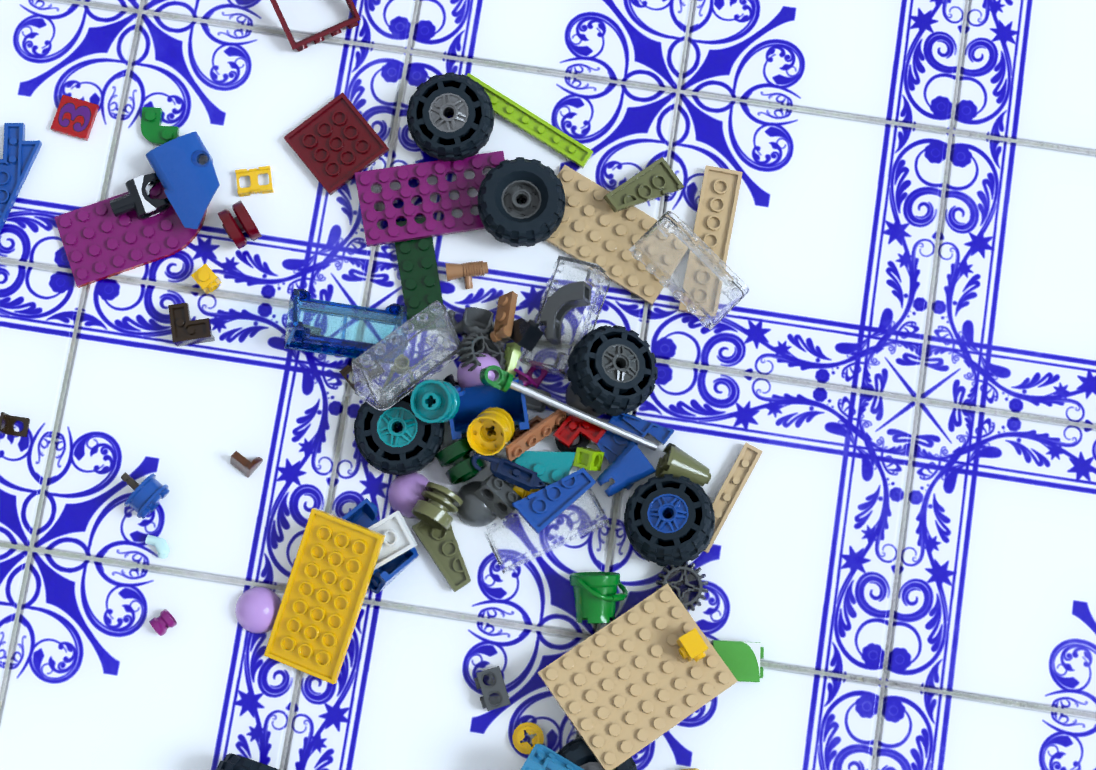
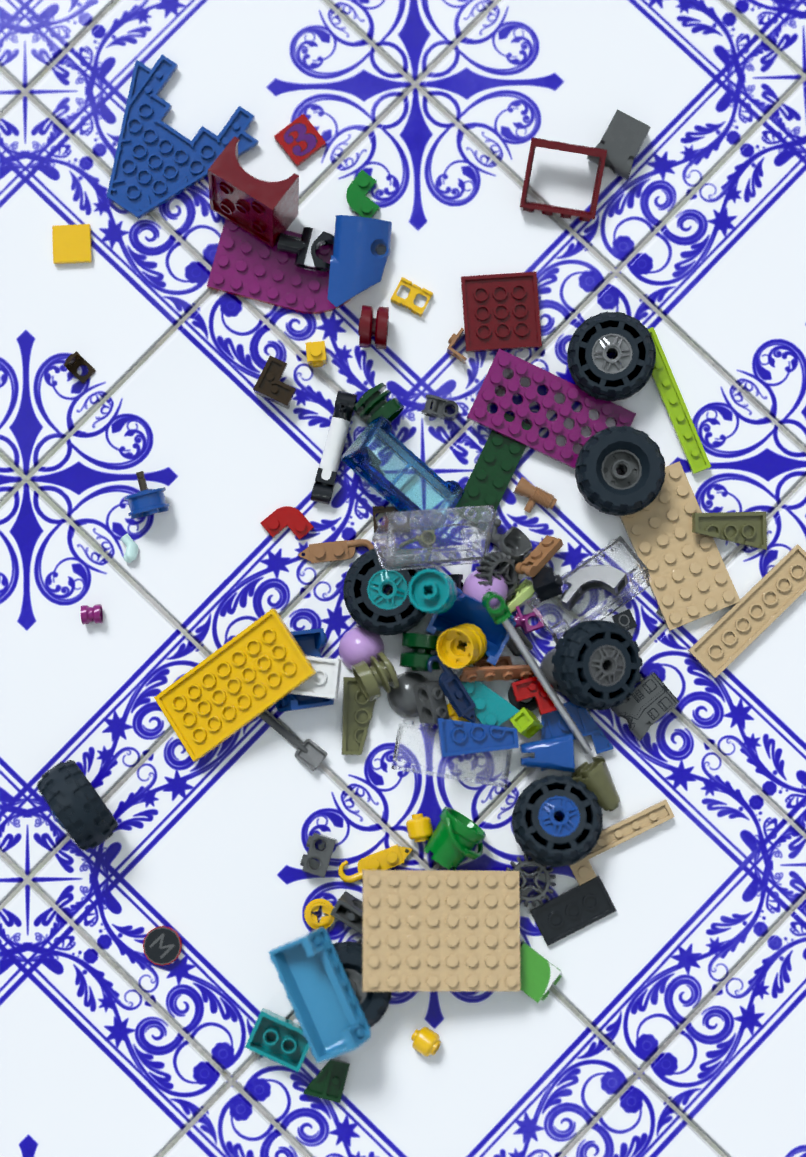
camera: 35 degrees right, 5 degrees up
(64, 190) = (251, 203): none -> dark red container
(244, 464) = (242, 530): tile -> none
(257, 609) = (174, 656): lavender piece -> none
(274, 346) = (333, 448): none -> piece
(276, 427) = (285, 517): none -> red plate
(282, 284) = (376, 404): none -> dark green wheel
(319, 201) = (452, 341): none -> medium nougat bracket
(331, 430) = (333, 550): none -> medium nougat plate
(338, 254) = (438, 407): none -> dark grey piece
(425, 611) = (308, 752): none -> dark grey piece
(551, 717) = (349, 911): none -> dark grey brick
(553, 650) = (380, 860): none -> yellow plate
(561, 607) = (419, 828): none -> yellow head
(610, 319) = (625, 620): none -> black tile
(675, 377) = (646, 705): none -> dark grey piece
(689, 269) = (720, 624): clear windscreen -> none
(692, 646) = (502, 937): yellow brick -> none
(721, 549) = (583, 872): none -> tan plate
(734, 586) = (573, 910): none -> black tile

